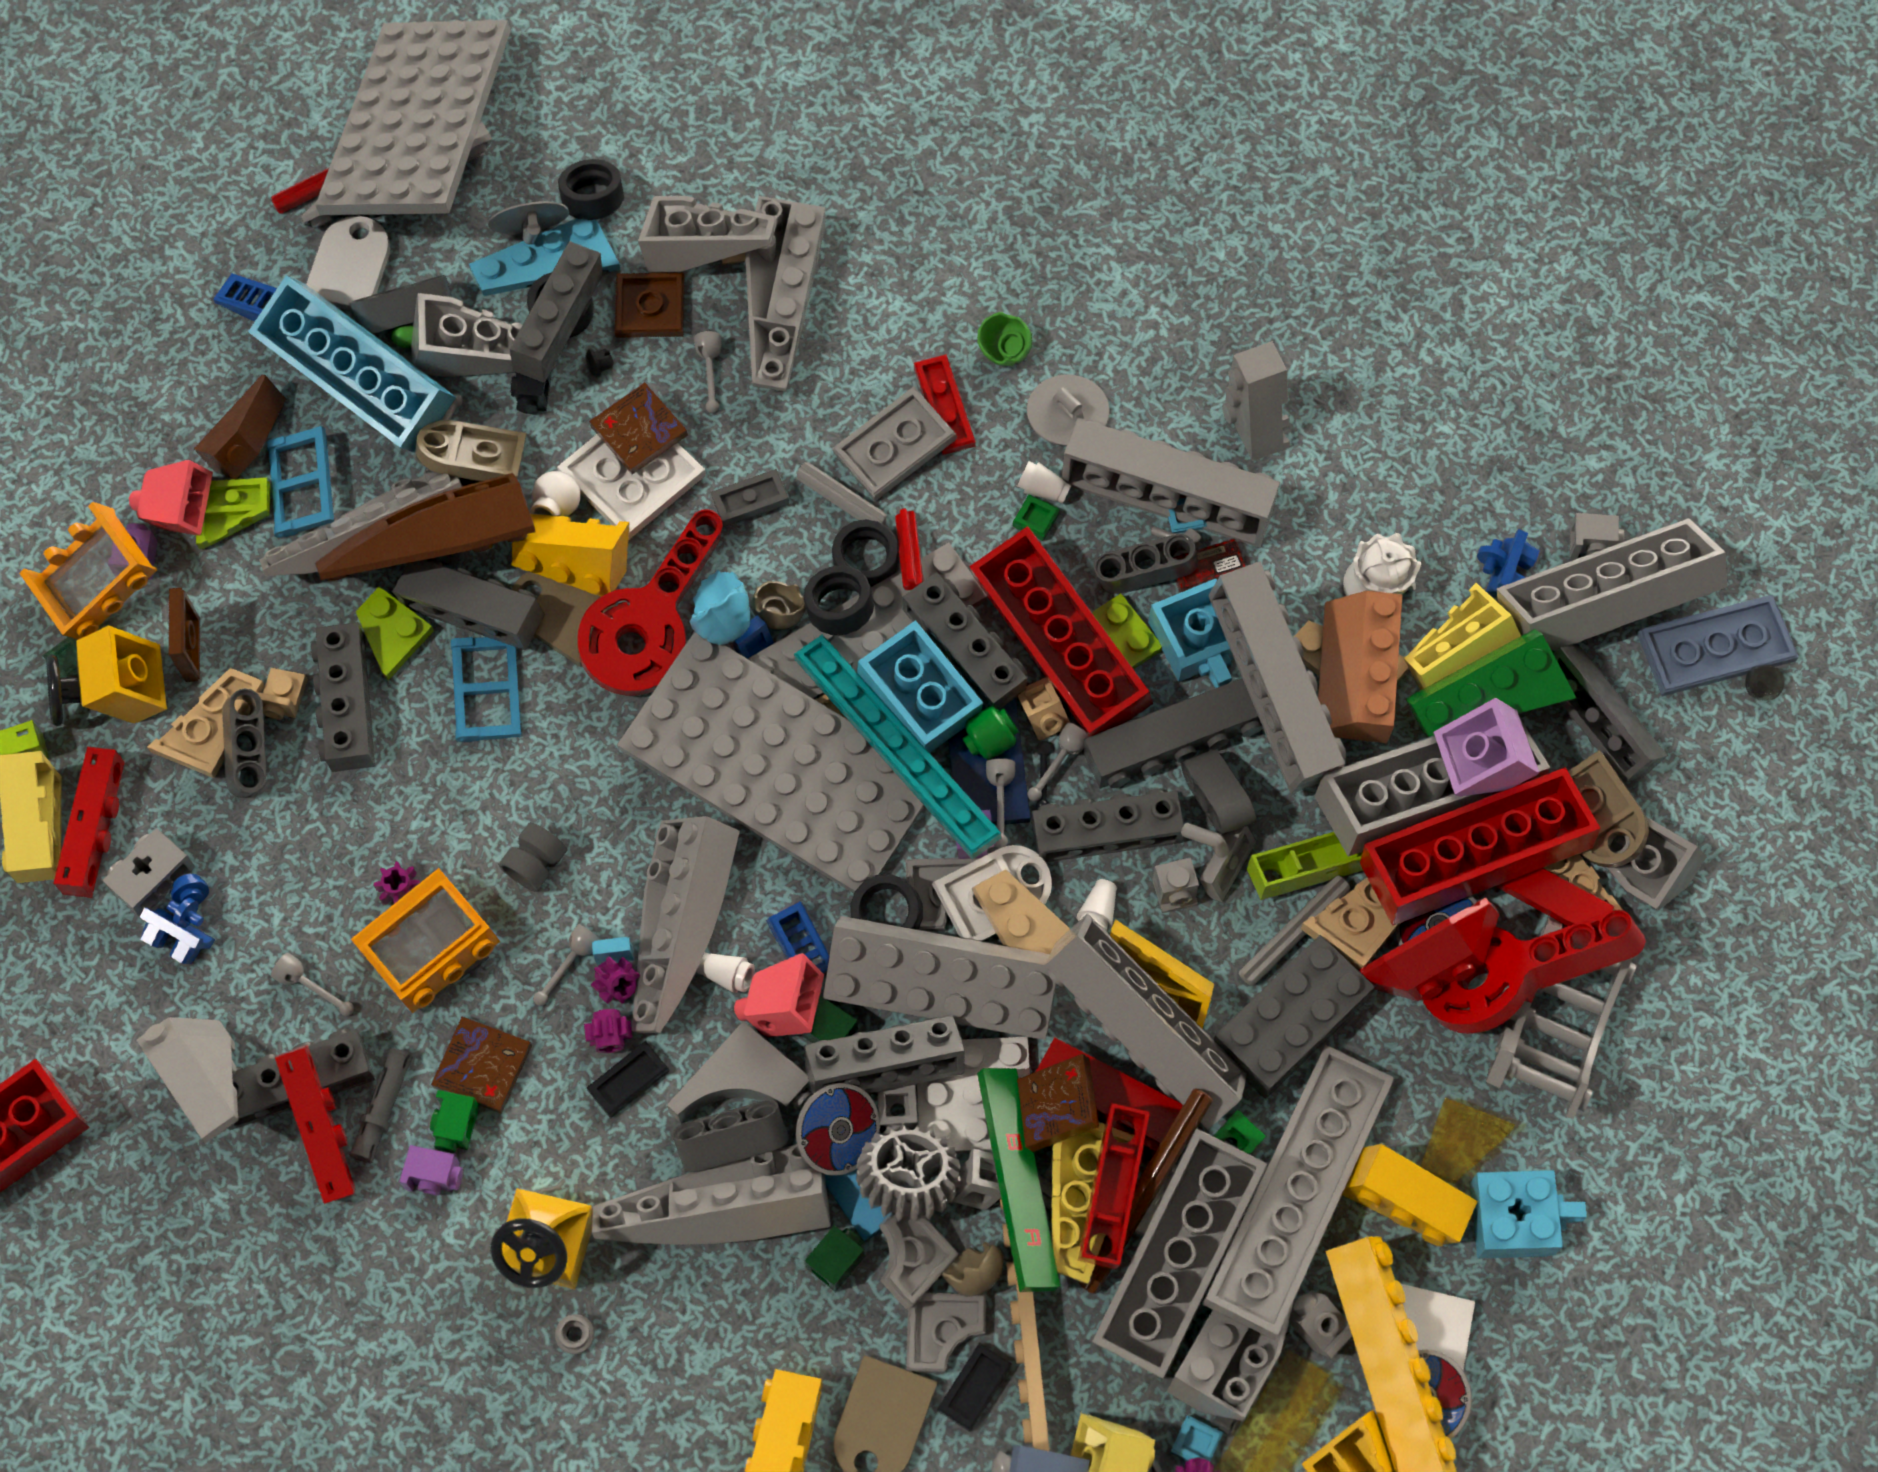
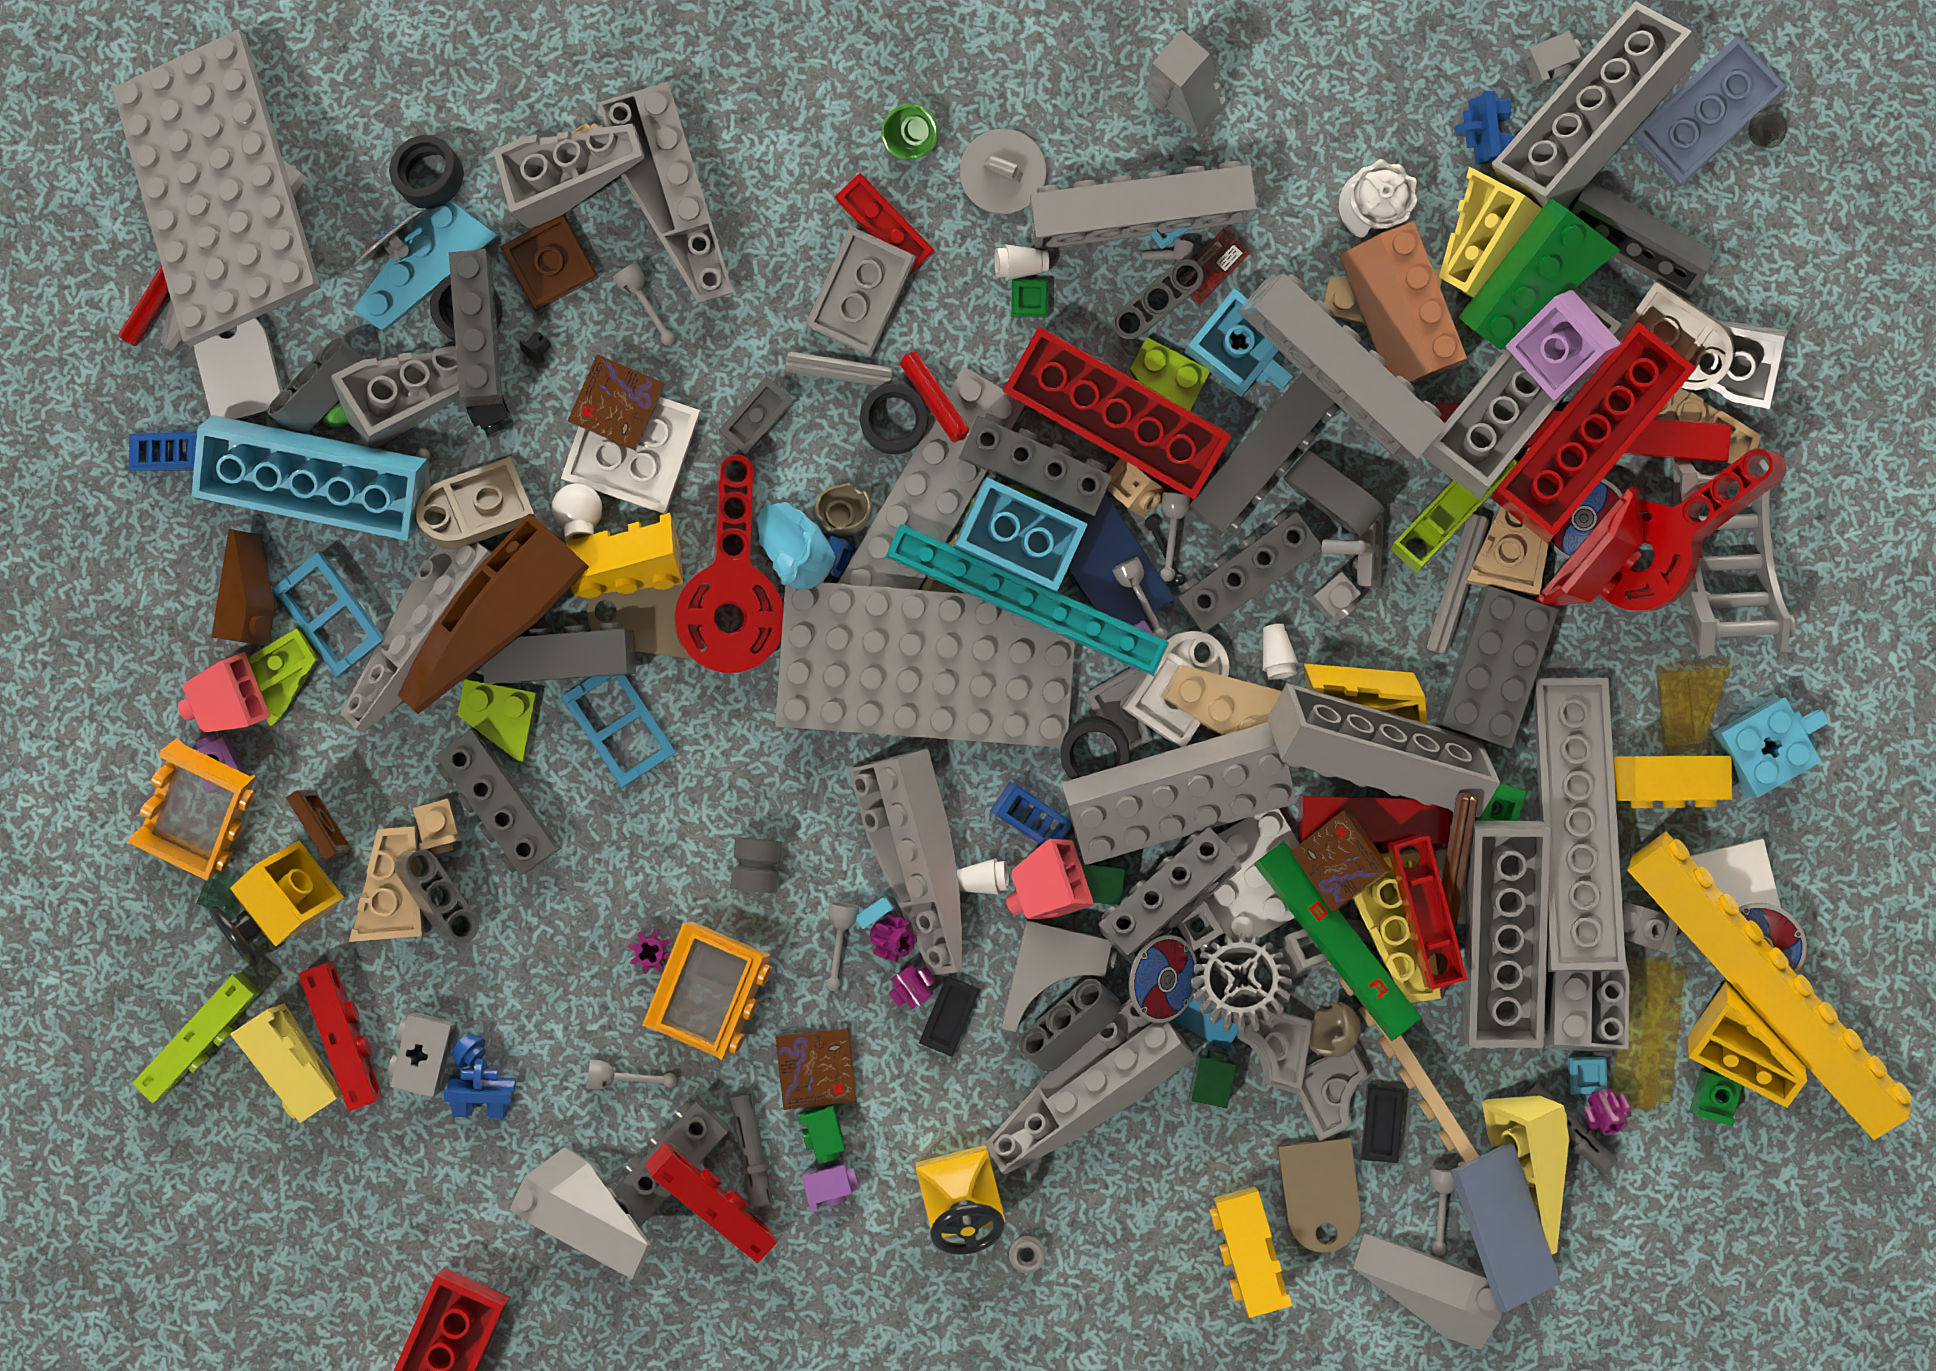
camera: 30 degrees left, 20 degrees up
(847, 620) = (875, 468): black tyre -> none
(990, 733) = (1103, 541): green head -> none

